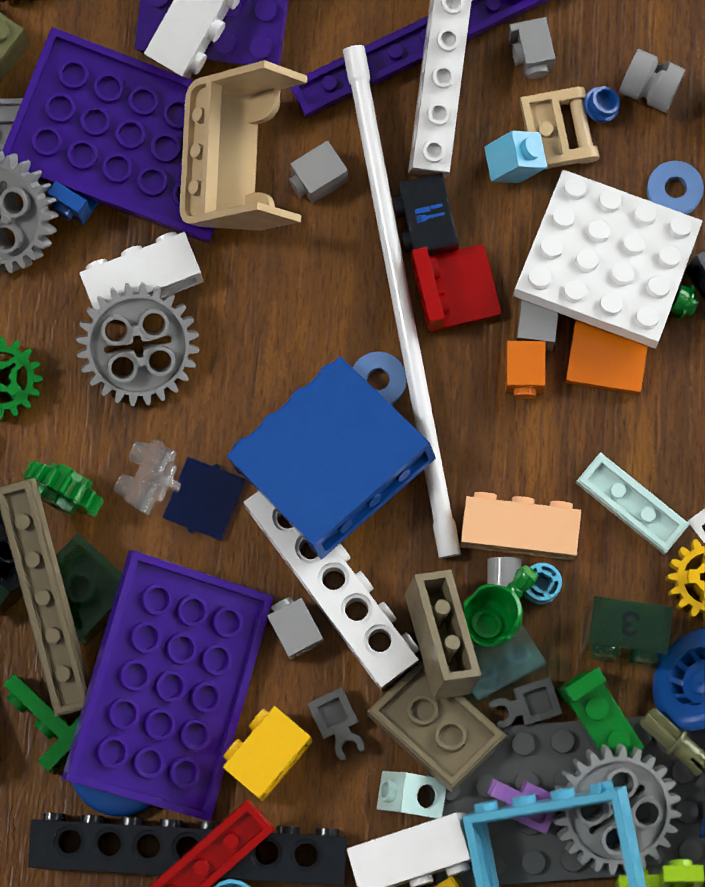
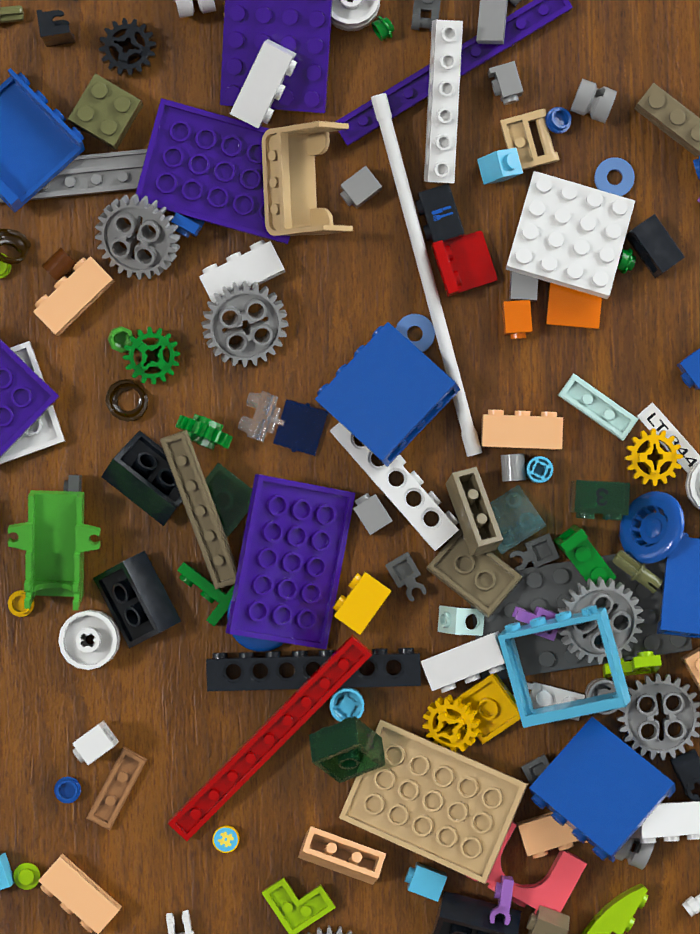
camera: 10 degrees left, 10 degrees up
(496, 611) = (509, 493): green hair -> none

